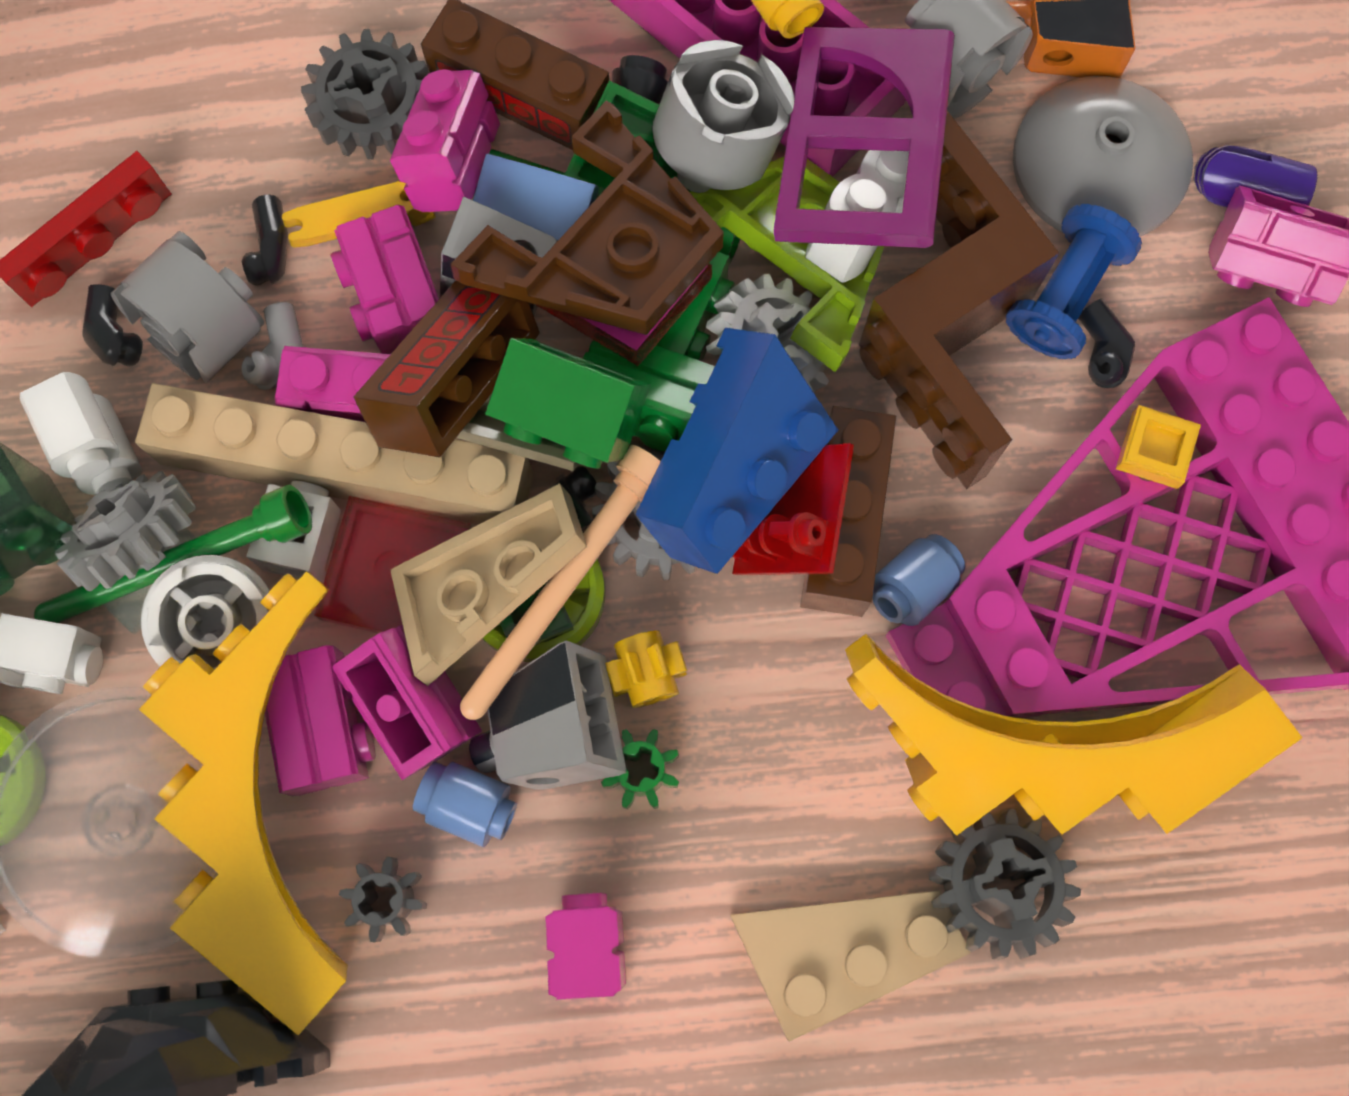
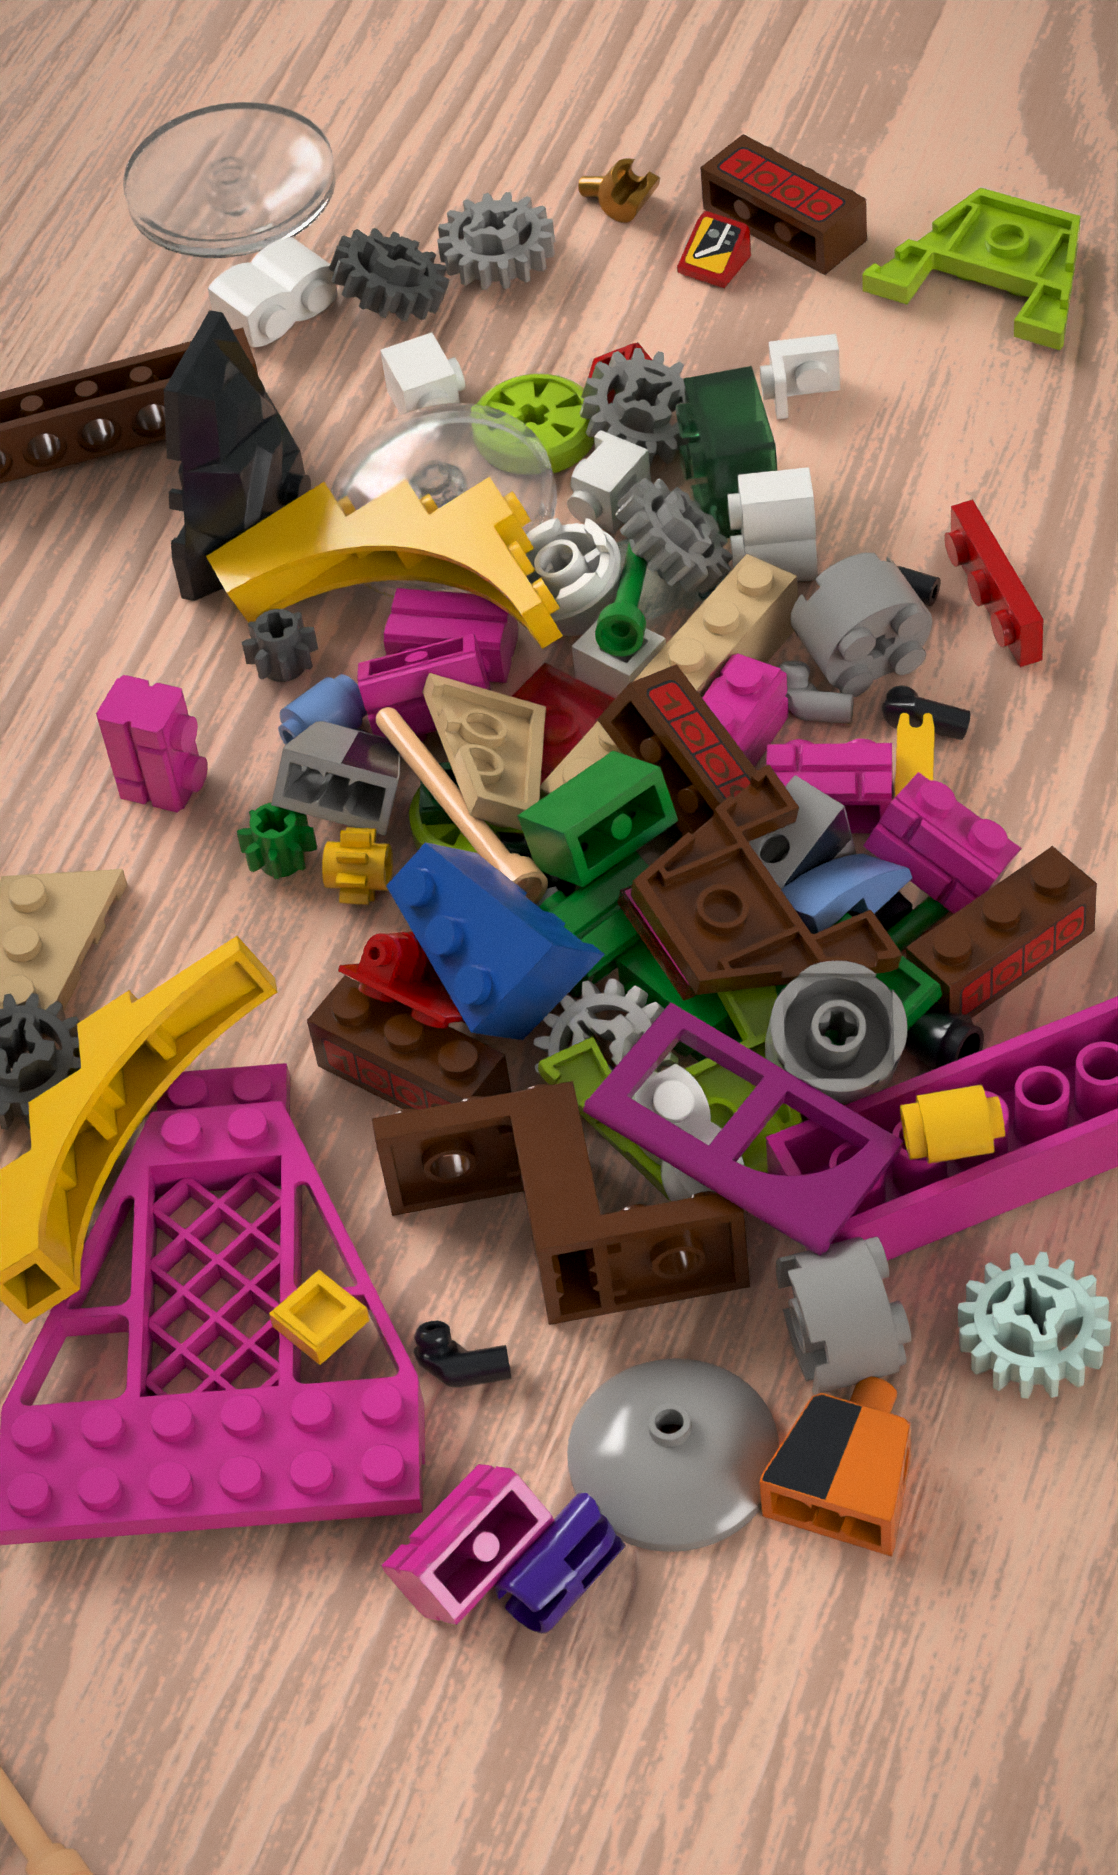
camera: 120 degrees right, 25 degrees down
(363, 92) = (1071, 813): dark grey gear -> none
(918, 580) = (316, 1092): medium blue brick -> none
(1096, 241) = (563, 1371): blue hose -> none

